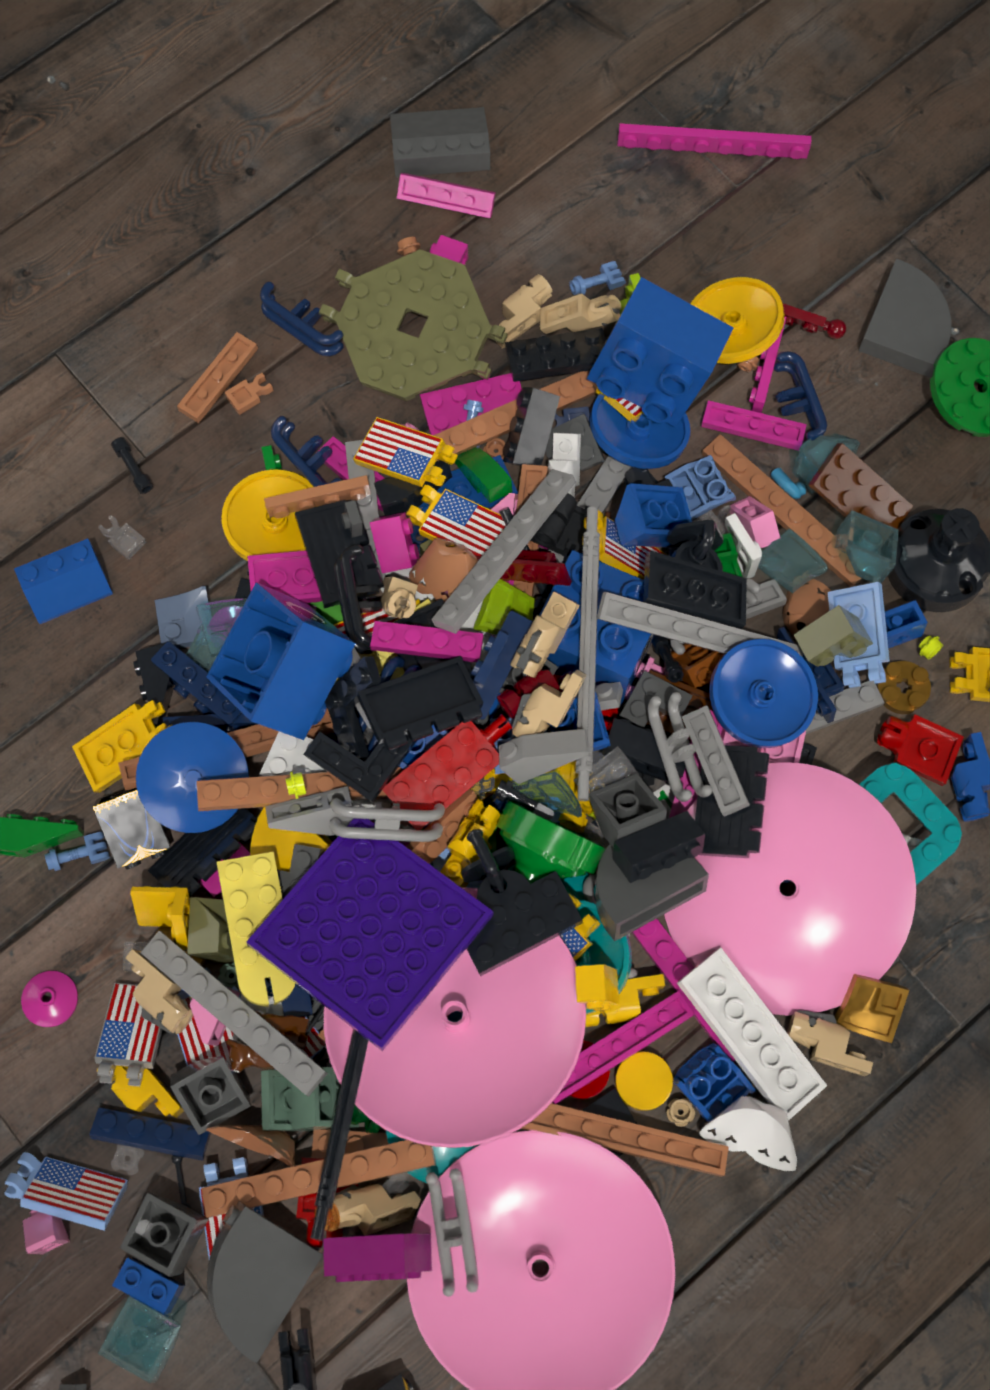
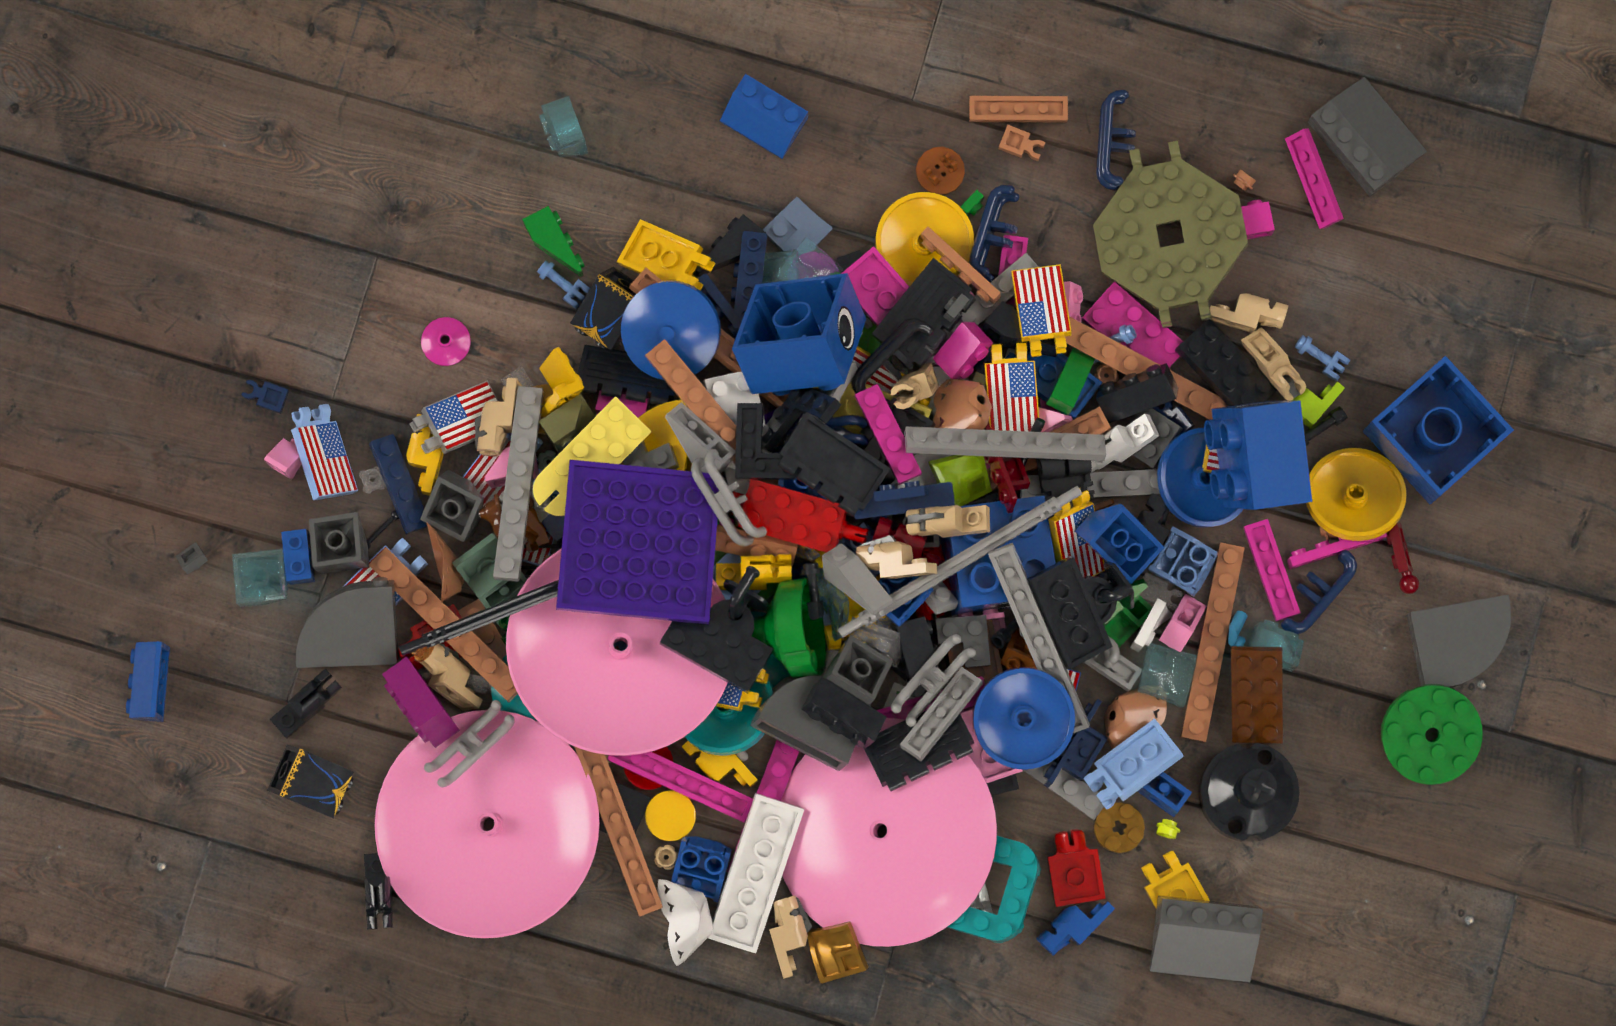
camera: 55 degrees right, 10 degrees up
(123, 539) = (830, 137): clear plate -> none
(140, 480) = (888, 114): black bar -> none
(222, 460) = (949, 163): none -> dark orange plate
(296, 784) = (710, 413): neon yellow plate -> none
(597, 986) = (706, 734): yellow brick -> none
(714, 141) = (1529, 377): dark pink plate -> none
(726, 220) = (1437, 430): none -> blue brick
(832, 635) = (1110, 744): olive slope -> none
(868, 545) = (1214, 726): clear light blue slope -> none

